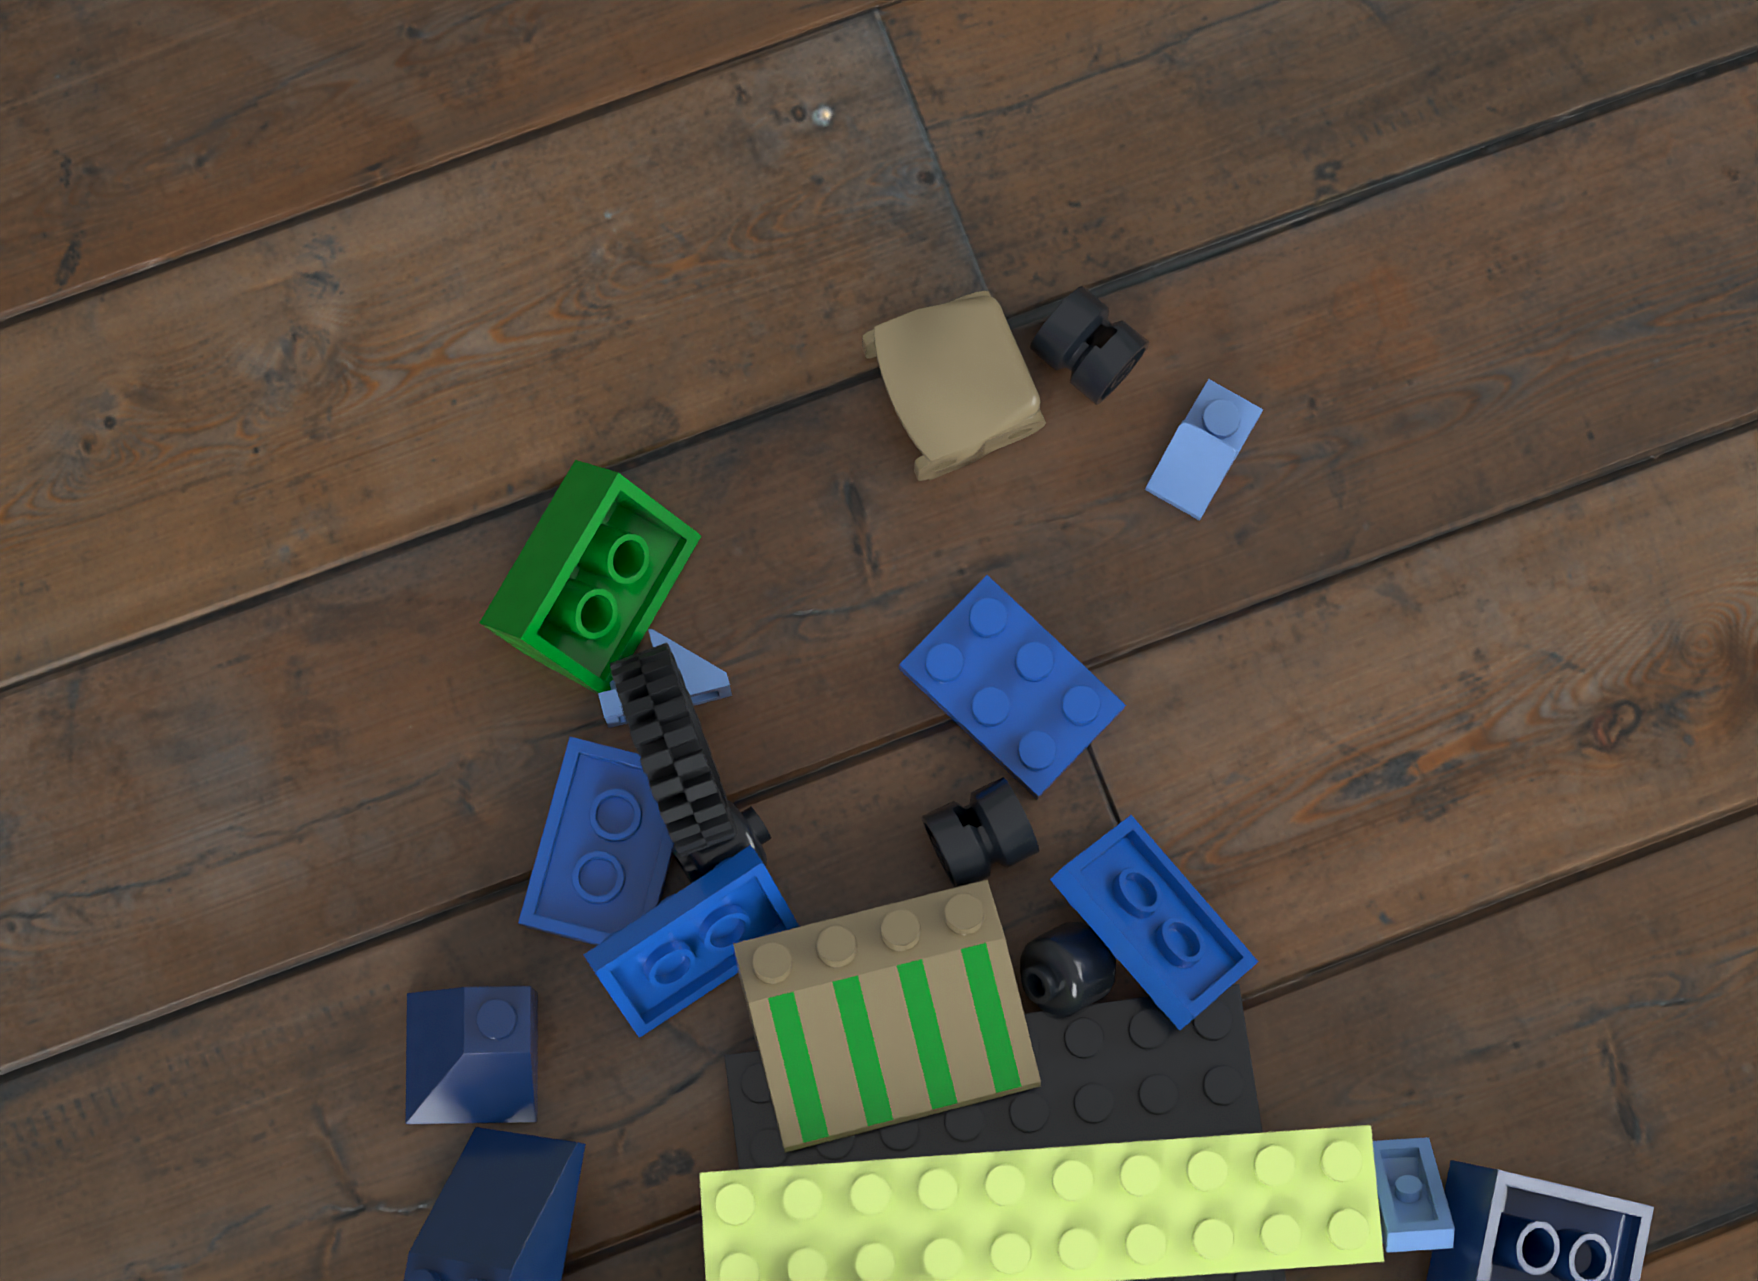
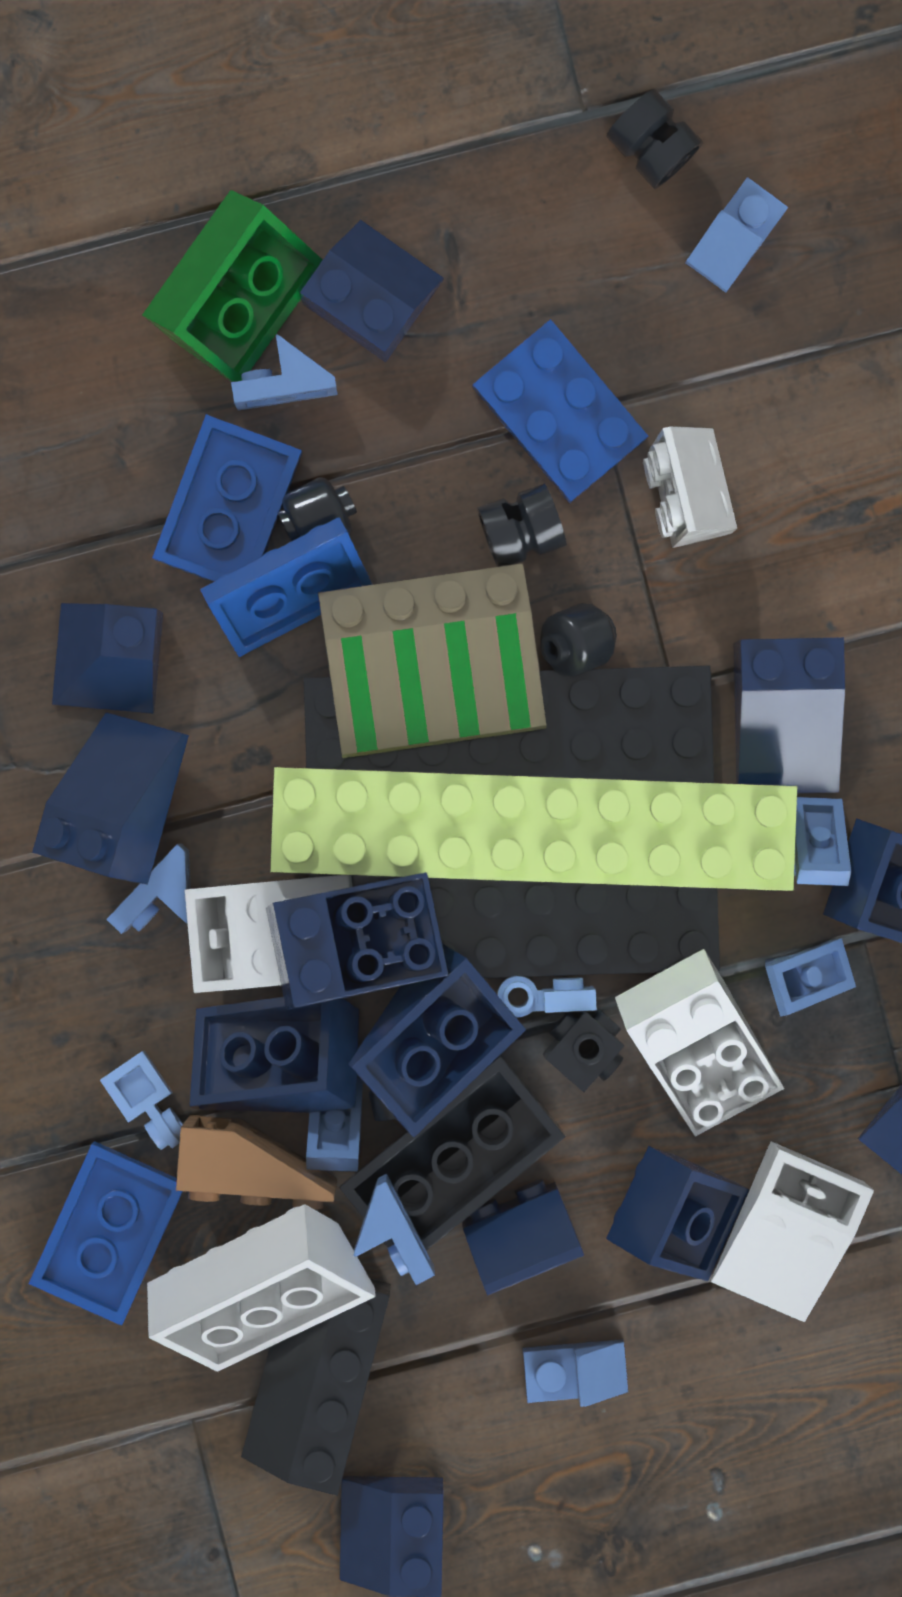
camera: 10 degrees right, 10 degrees up
(673, 749) = (285, 434): black tyre -> none
(759, 563) = (370, 289): none -> dark blue slope
(956, 381) = (543, 157): dark tan piece -> none
(1154, 921) = (649, 609): blue plate -> none
(1186, 761) = (690, 486): none -> white slope
(1347, 1032) = (789, 712): none -> dark blue slope

